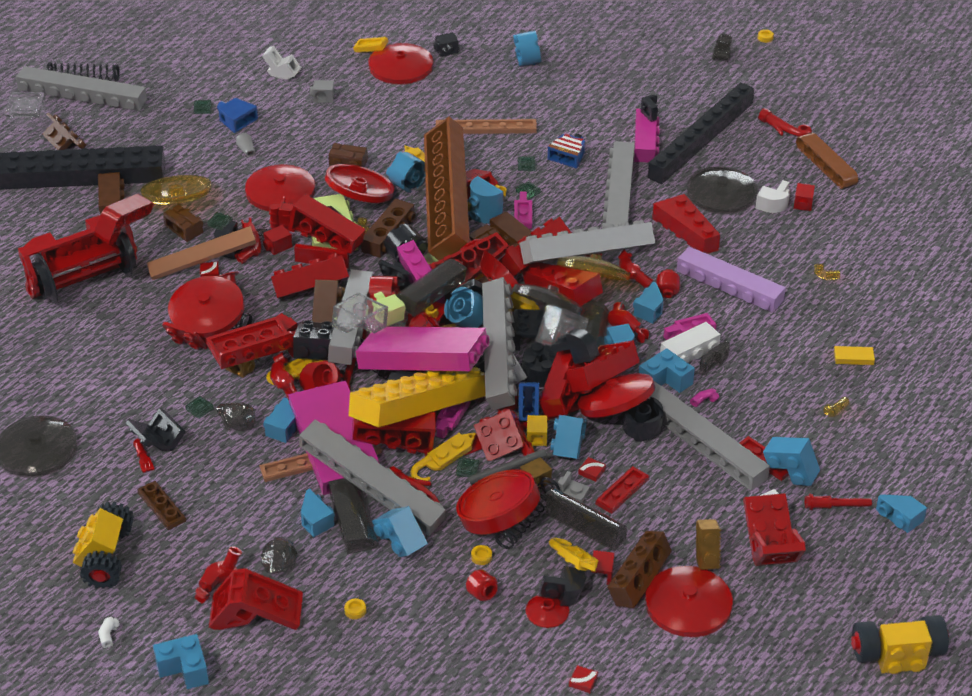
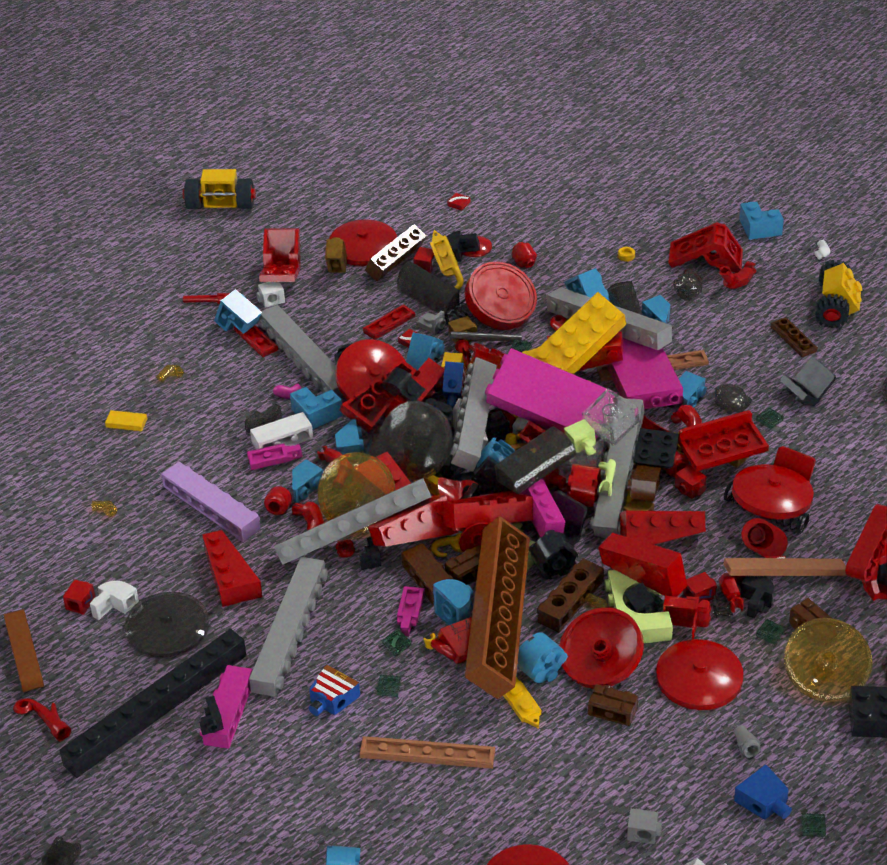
camera: 170 degrees left, 0 degrees up
(361, 285) = (610, 467): none -> yellowish green piece
(901, 510) = (163, 283): dark azure slope -> none

